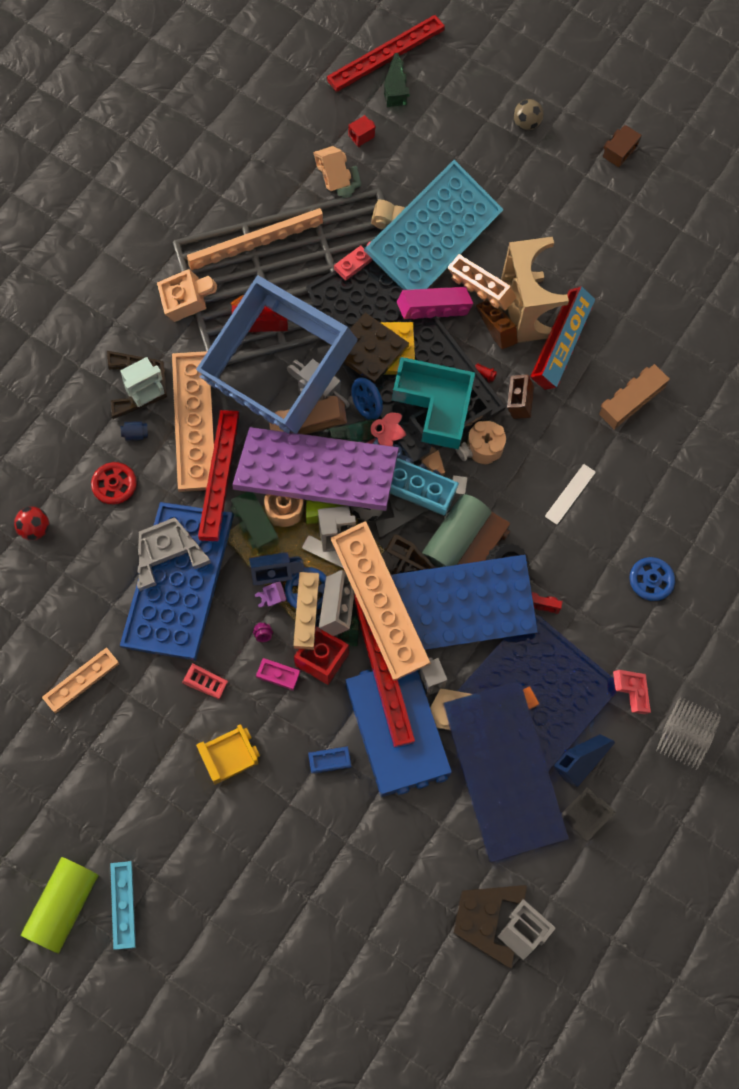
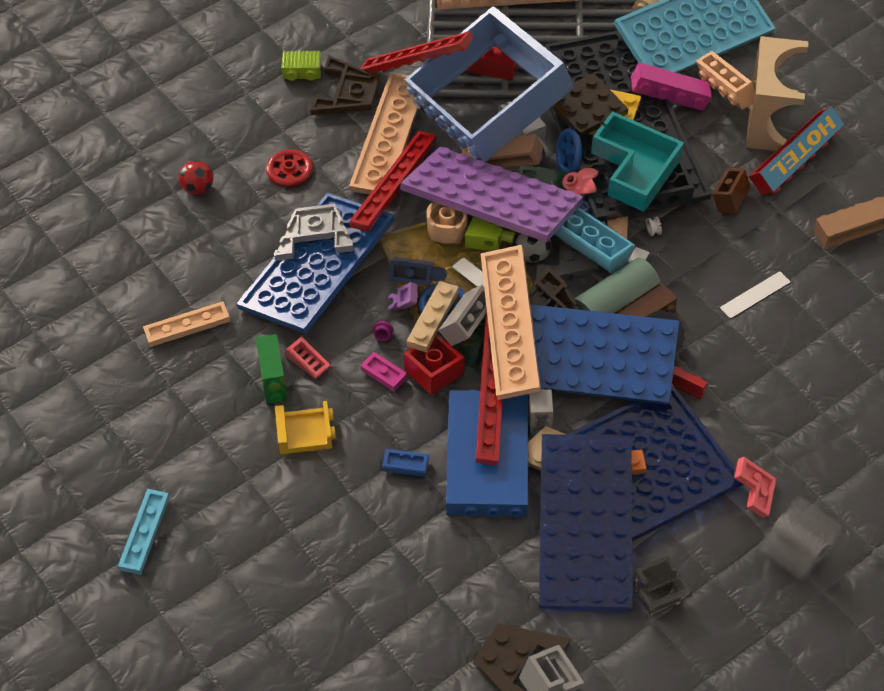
camera: 25 degrees right, 15 degrees down
(59, 905) = (83, 512): lime brick -> none
(85, 368) = (301, 65): none -> lime brick
(134, 431) = (327, 128): dark blue brick -> none
(142, 381) = (350, 83): light aqua plate -> none
(179, 707) = (271, 368): none -> green brick
(185, 294) = (422, 23): light nougat brick -> none
(199, 339) = (418, 53): none -> red plate
(254, 522) = (412, 229): clear green brick -> none
(333, 522) = (486, 241): light grey plate -> none
(352, 263) = (599, 35): coral plate -> none
(486, 432) = (680, 222): light nougat brick -> none
(489, 374) = (705, 165): red pin -> none
(499, 324) = (732, 124): reddish brown slope -> none
(581, 759) = (669, 537): dark blue slope -> none
(640, 588) = (819, 408): blue plate -> none

